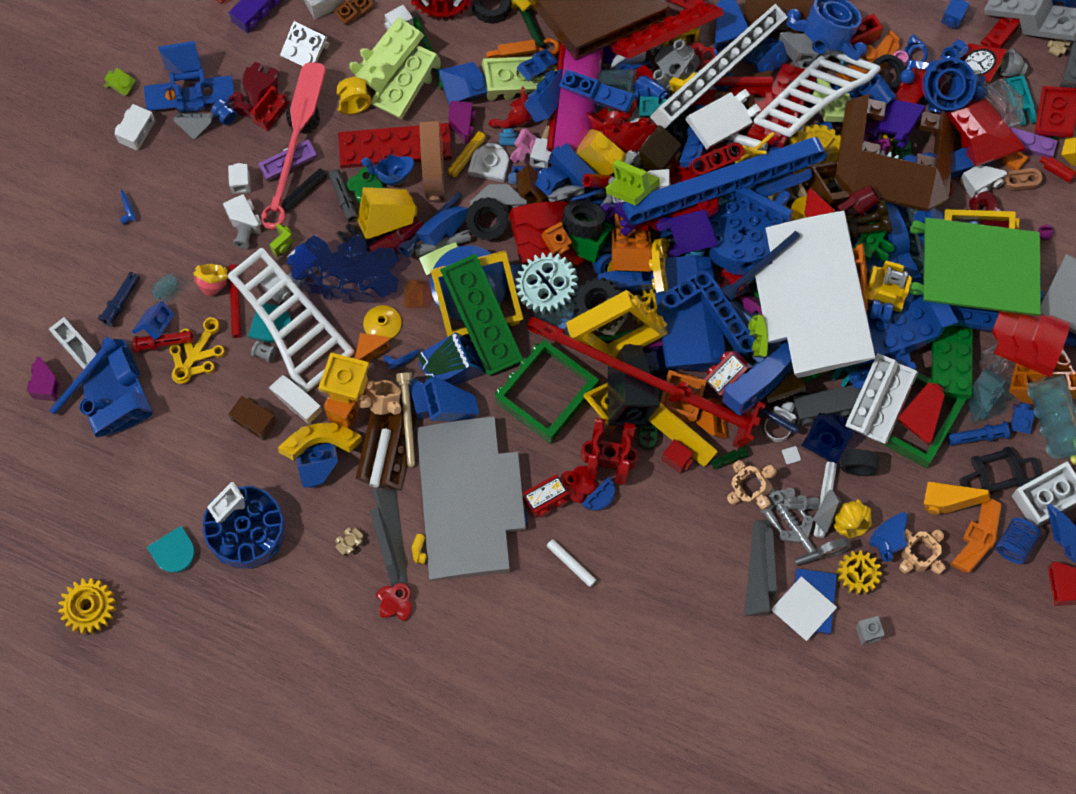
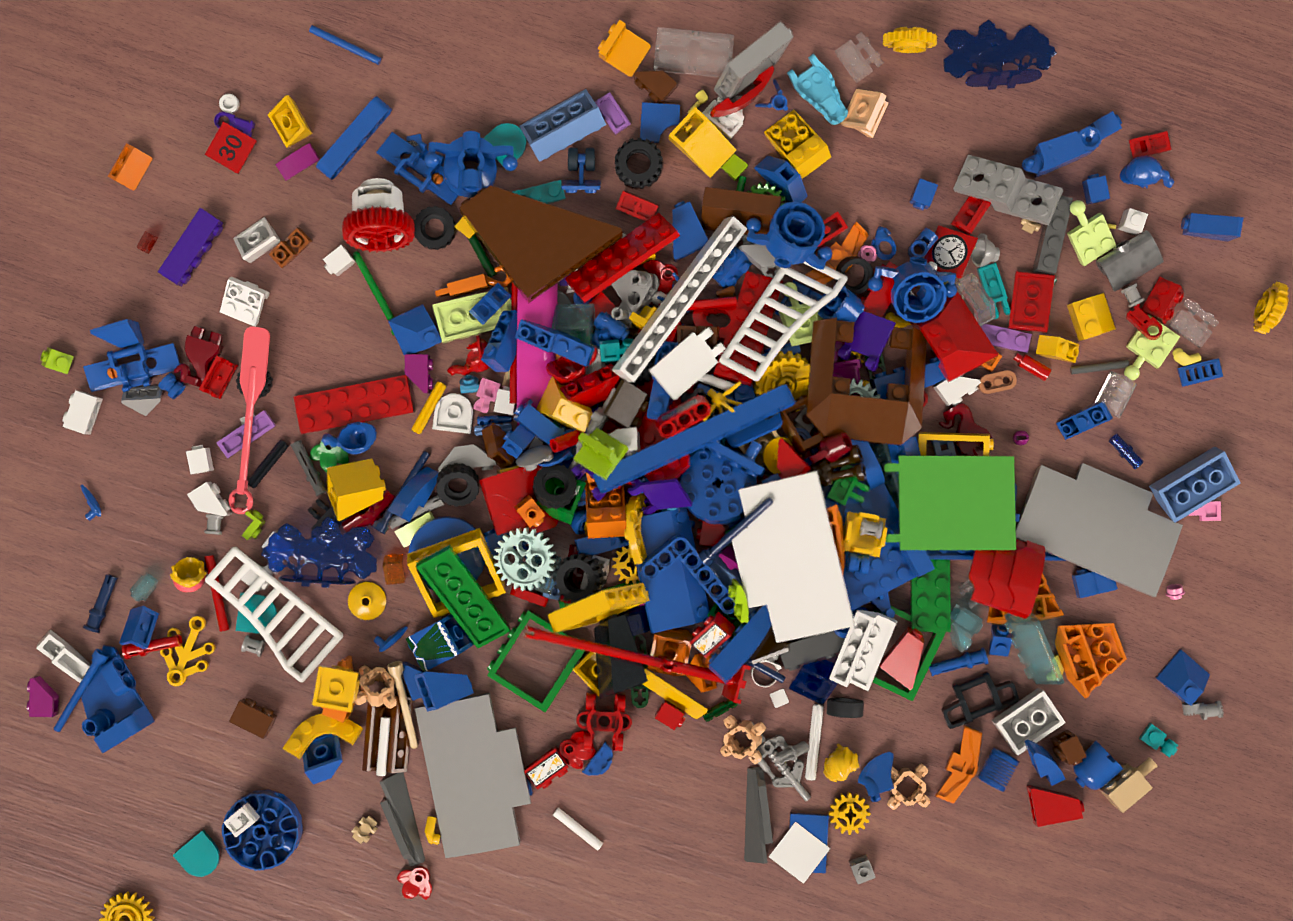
camera: 10 degrees left, 20 degrees up
(296, 399) = (291, 692): white slope -> none
(353, 96) = (303, 355): yellow helmet -> none
(371, 346) = (356, 631): orange slope -> none
(387, 55) = (332, 307): yellowish green hinge -> none
(406, 82) = (354, 332): yellowish green hinge -> none
(432, 160) = (393, 433): nougat brick -> none
(826, 551) = (816, 798): flat silver piece -> none
(827, 511) = (817, 756): light grey slope -> none
(950, 498) = (927, 733): light orange slope -> none

